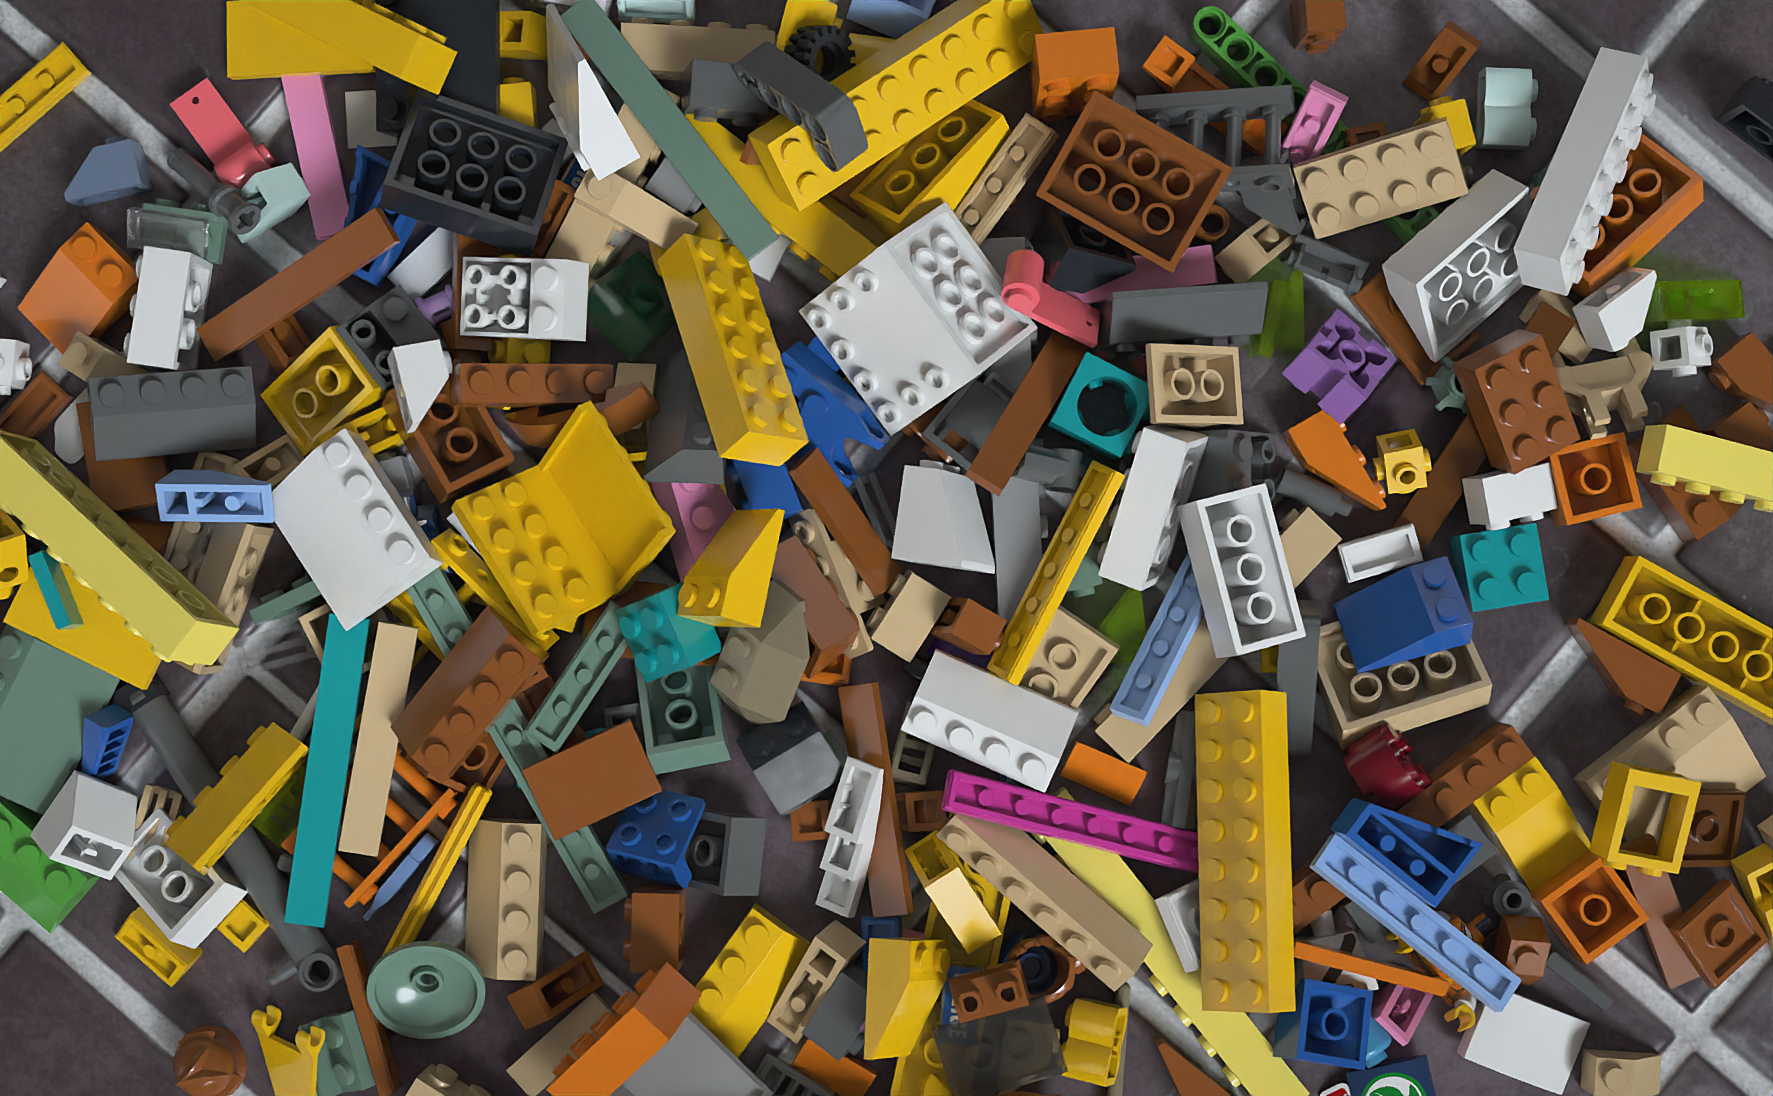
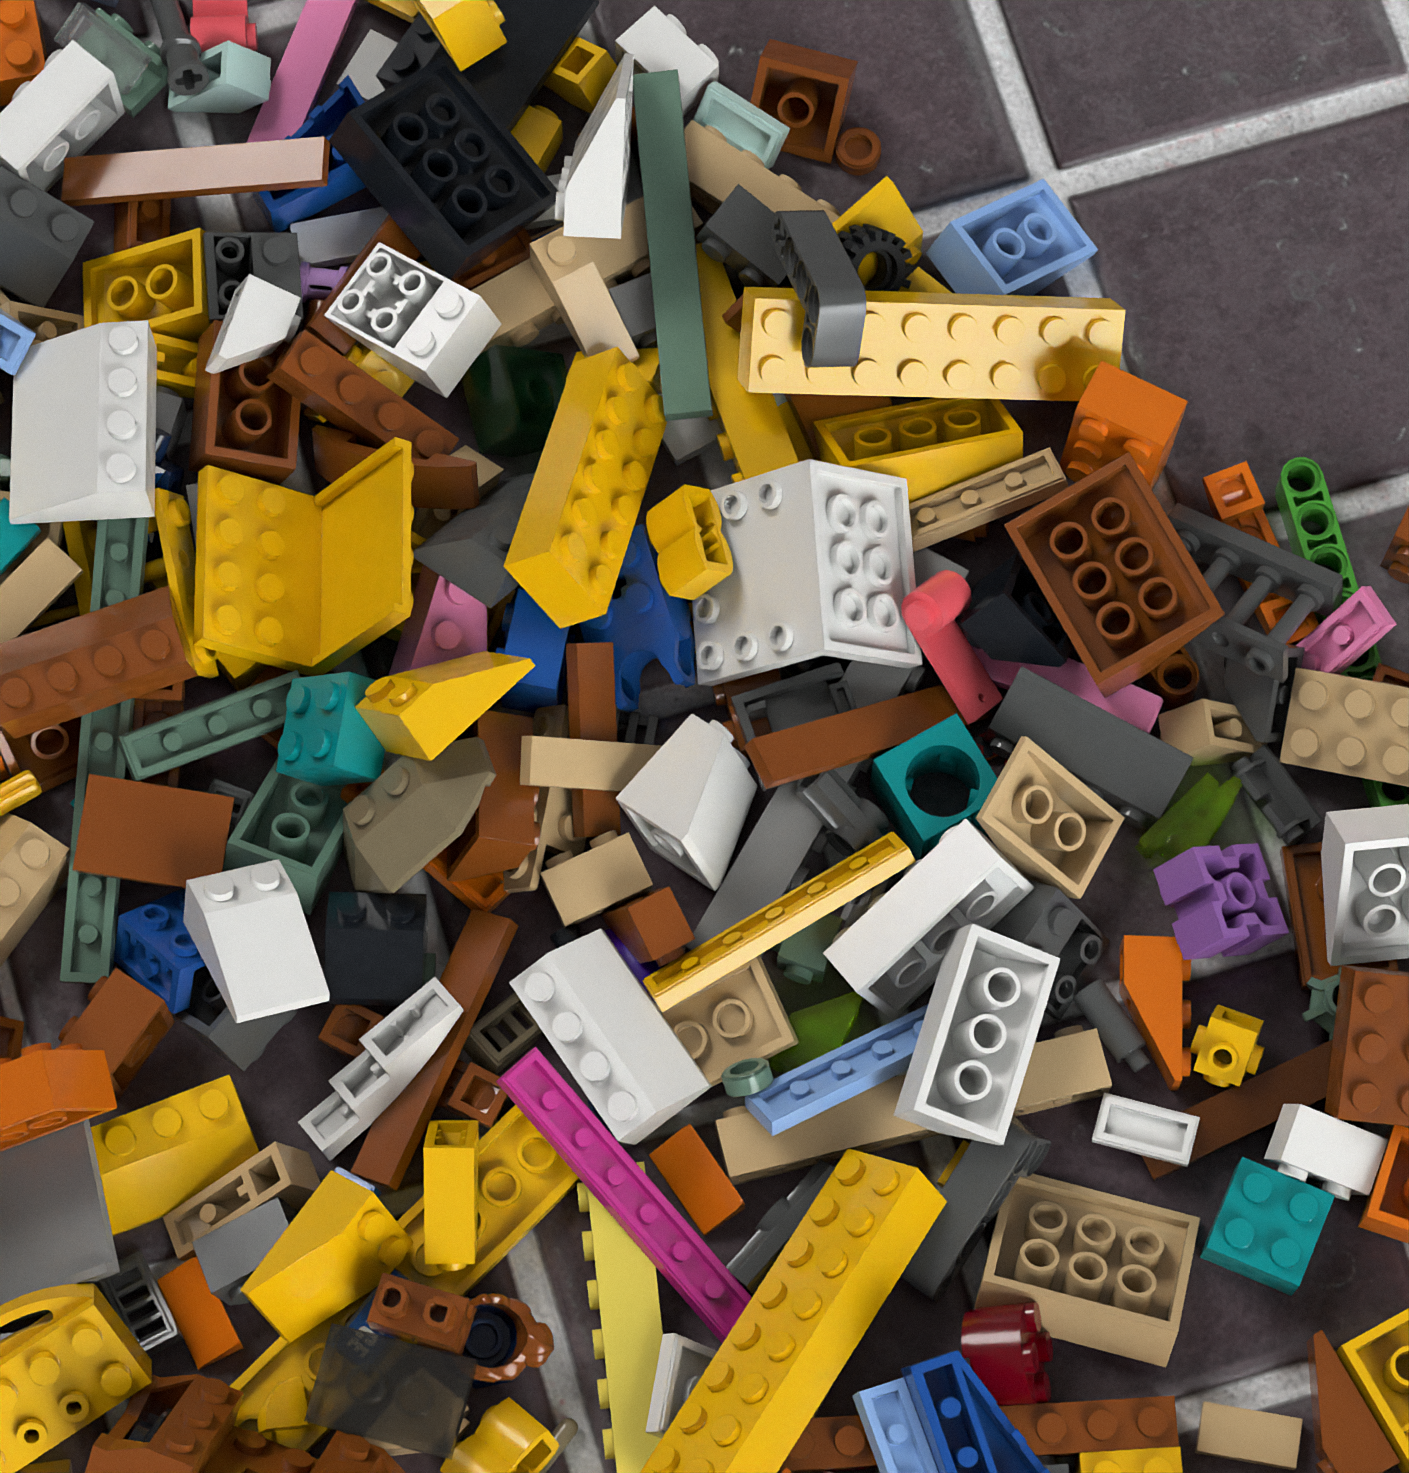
camera: 35 degrees right, 15 degrees down
(714, 815) = (255, 940): none -> white slope
(827, 346) = (689, 542): none -> yellow brick
(856, 545) = (581, 763): none -> tan tile
(1049, 896) = (552, 1256): tan brick -> none
(1103, 695) = (747, 1077): none -> sand green tile
(1405, 616) = (1130, 1210): blue slope -> none
(1566, 712) = (1248, 1435): none -> tan tile

